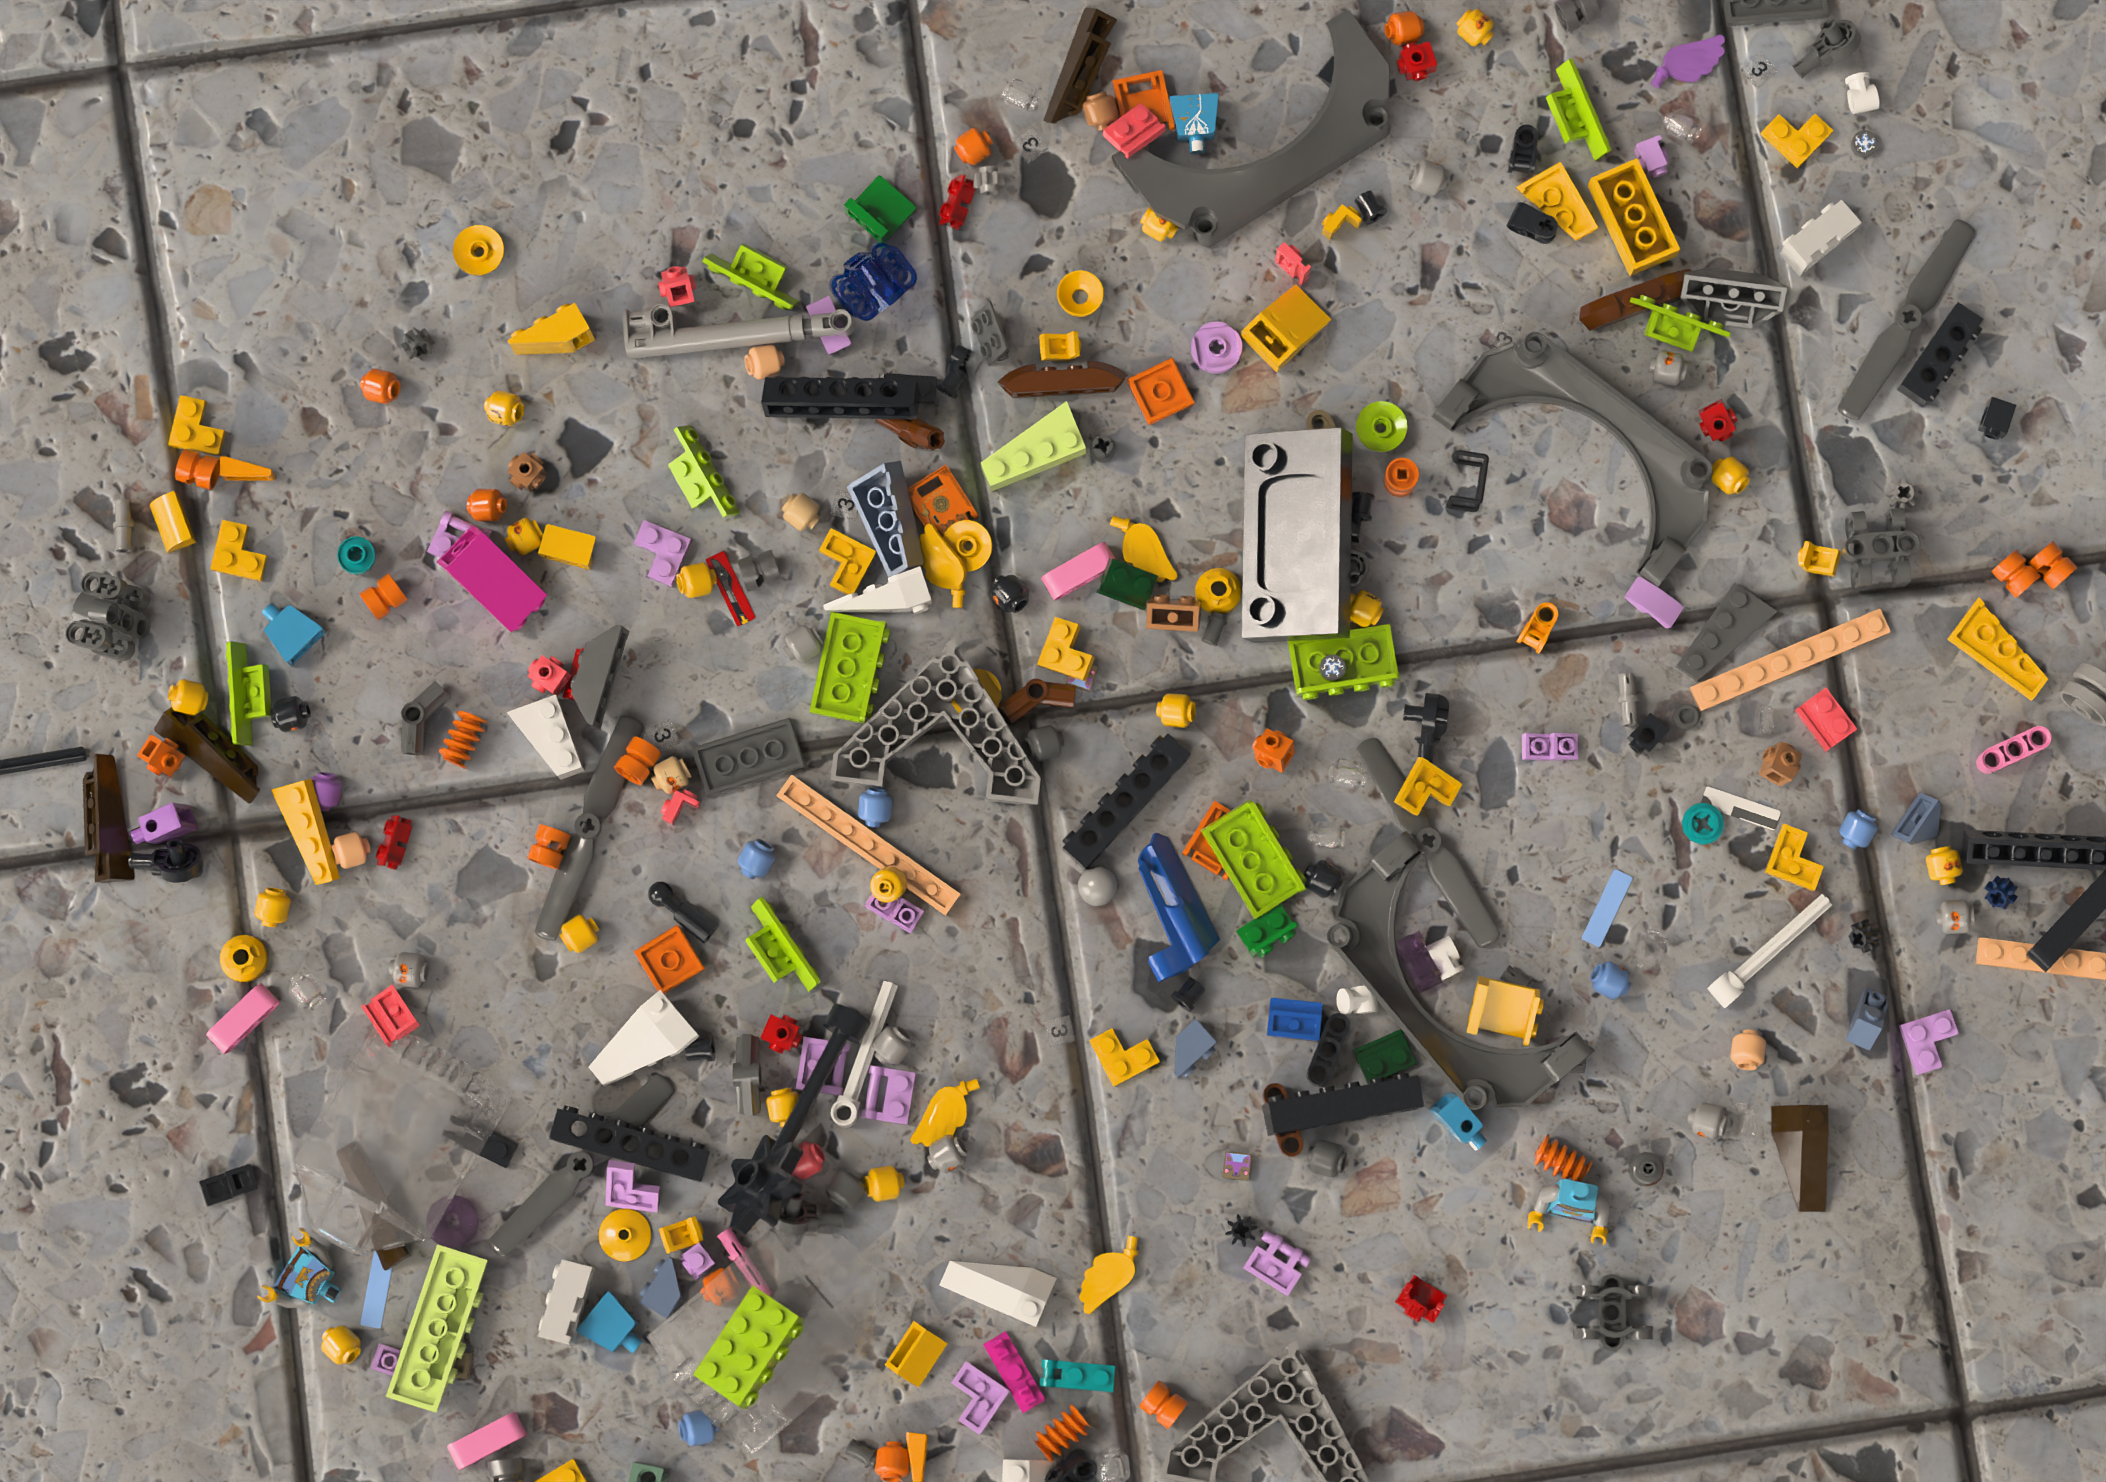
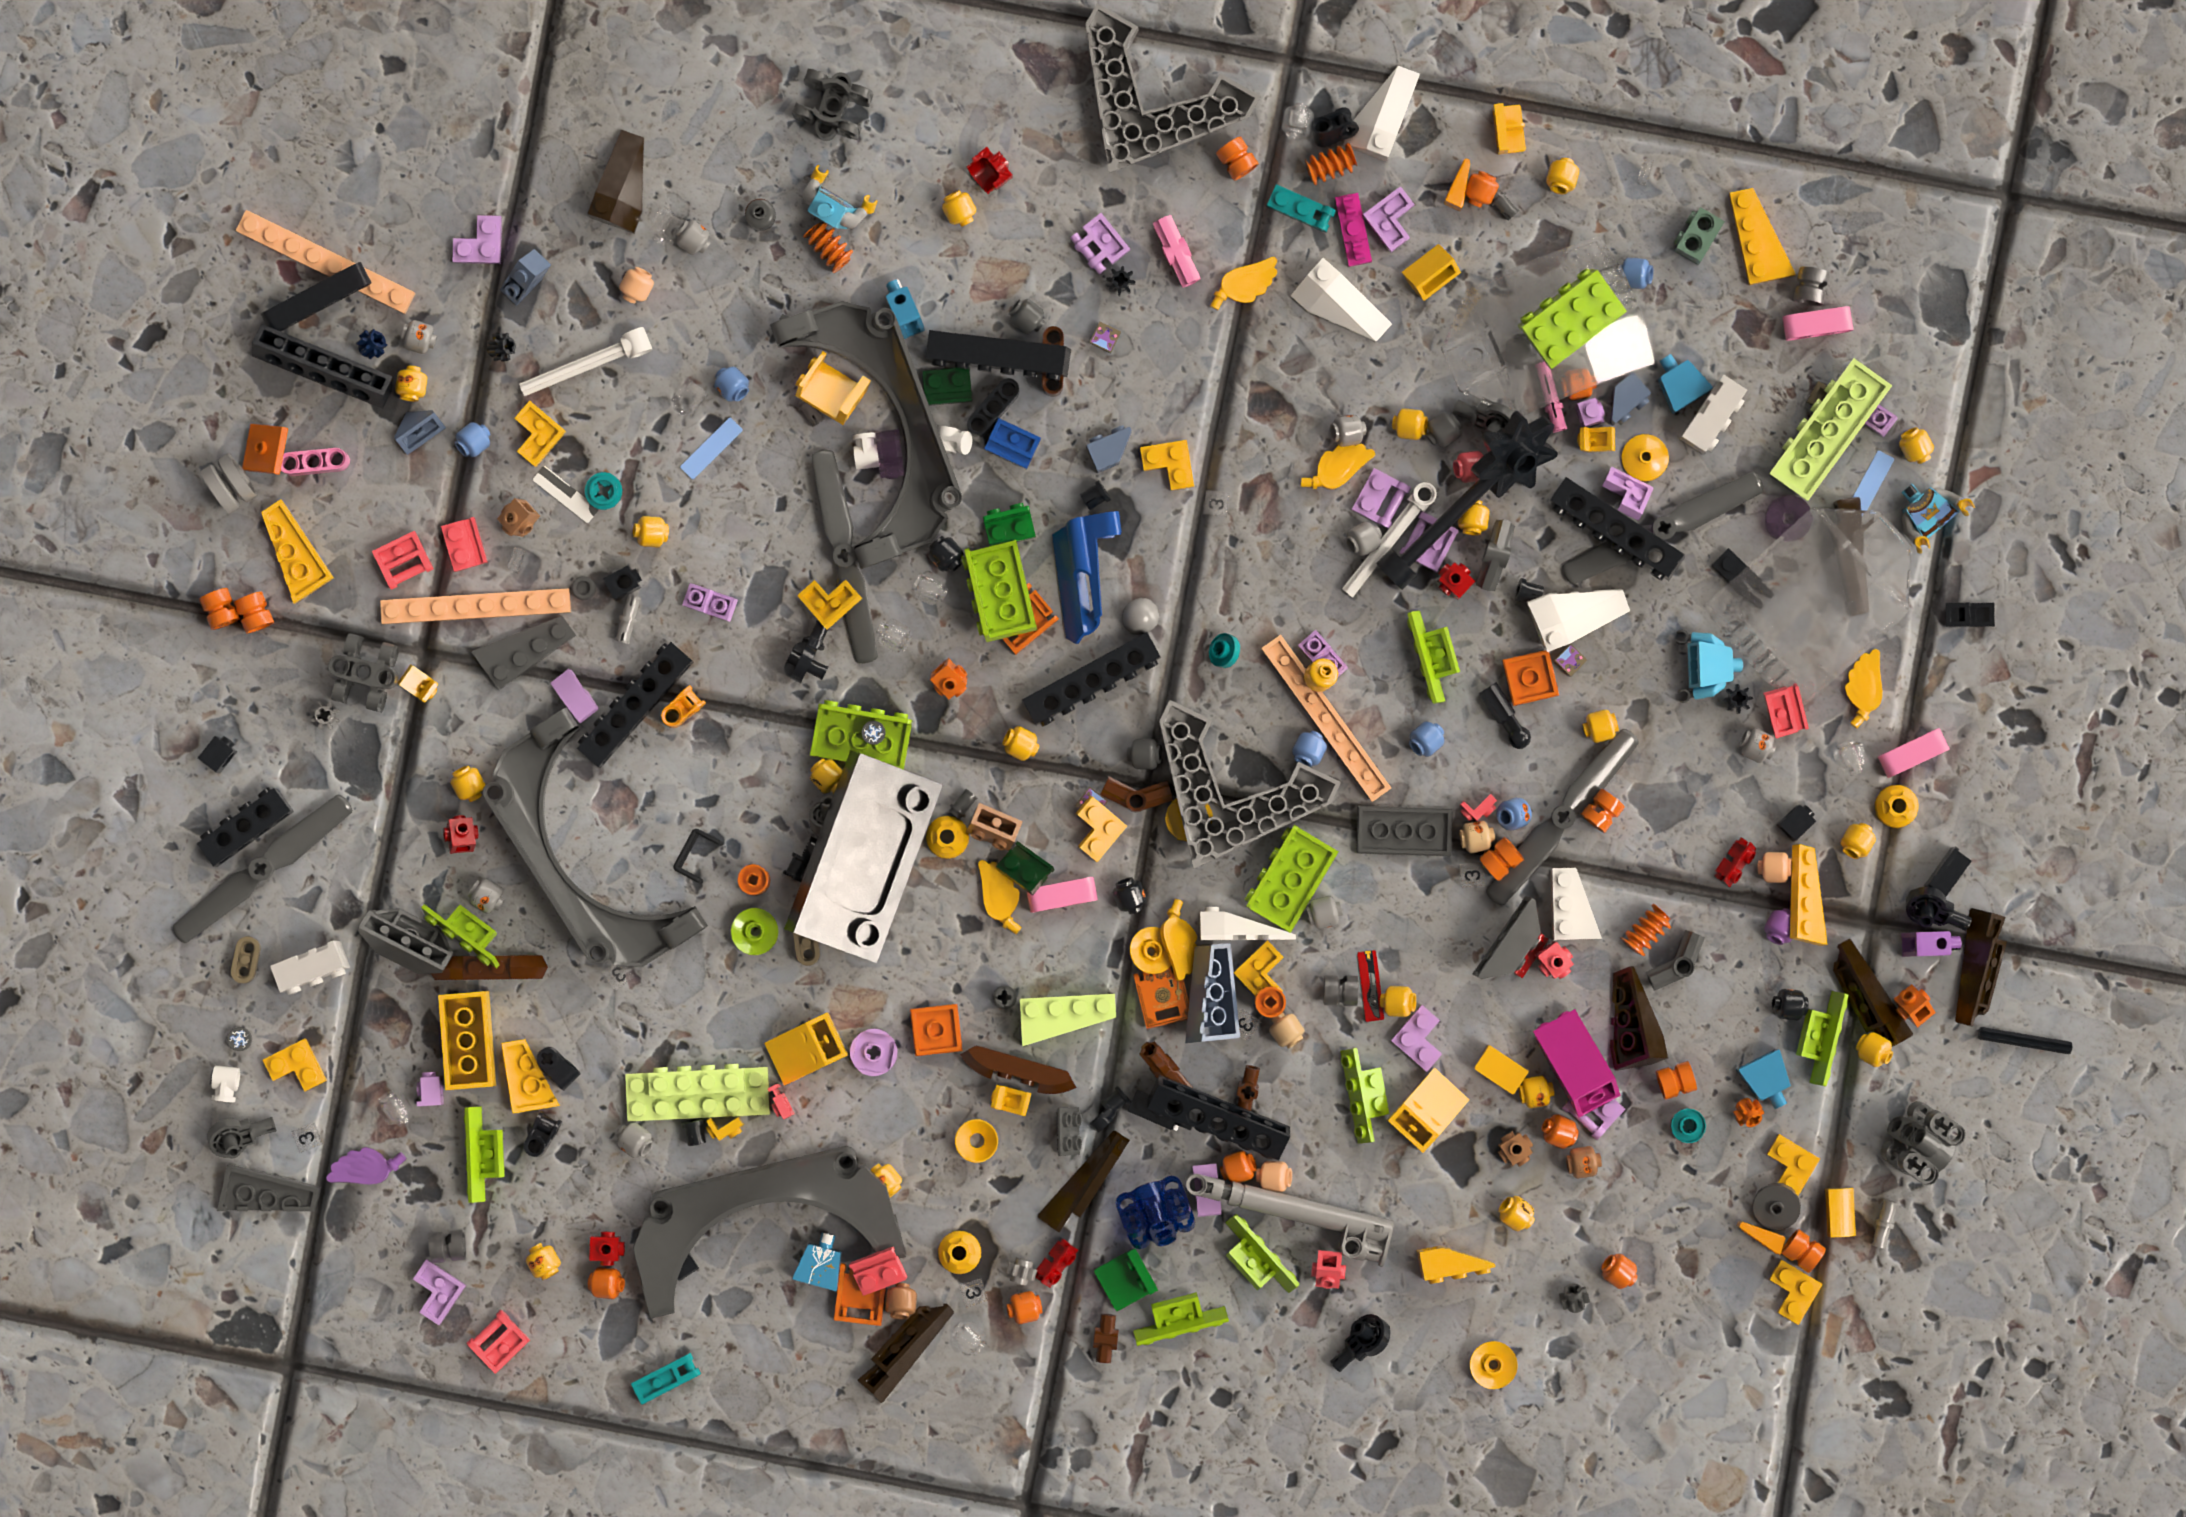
camera: 160 degrees left, 5 degrees up
(169, 907) = (1948, 871): none -> black panel
(243, 515) = (1774, 1195): none -> dark grey plate
(298, 589) = (1748, 1112): none -> orange gear
(315, 1071) = (1865, 686): none -> yellow animal
(342, 904) = (1797, 822): none -> black brick
(438, 1009) = (1733, 704): none -> black gear
(441, 634) = (1636, 1030): none -> dark brown wedge
(452, 482) = (1583, 1162): none -> medium nougat head
(486, 1036) = (1709, 664): none -> medium azure torso
(618, 228) = (1363, 1341): none -> black pin
(629, 479) = (1428, 1110): none -> yellow slope
(633, 993) = (1570, 660): none -> tile
(640, 811) = (1514, 814): none -> medium blue head
(804, 358) = (1238, 1166): none -> orange head
(812, 189) = (1179, 1317): none -> lime bracket
(821, 447) = (1249, 1079): none -> reddish brown axle
(827, 531) = (1270, 1001): none -> orange wheel
(880, 144) = (1105, 1338): none -> reddish brown axle
(955, 290) = (1084, 1184): none -> dark brown wedge
(998, 878) = (1224, 650): none -> teal plate
(1062, 192) = (972, 1248): none -> yellow piece
(1193, 1283) = (1176, 251): none -> bright pink piece
(1381, 247) = (697, 1093): none -> yellowish green plate
(1439, 1249) = (959, 208): none -> yellow head
(1607, 551) = (632, 718): none -> black brick
(1638, 797) = (651, 531): none -> yellow head
(1888, 224) = (245, 959): none -> dark tan plate
(1890, 687) = (398, 553): none -> coral plate
(2069, 744) = (265, 449): none -> orange plate

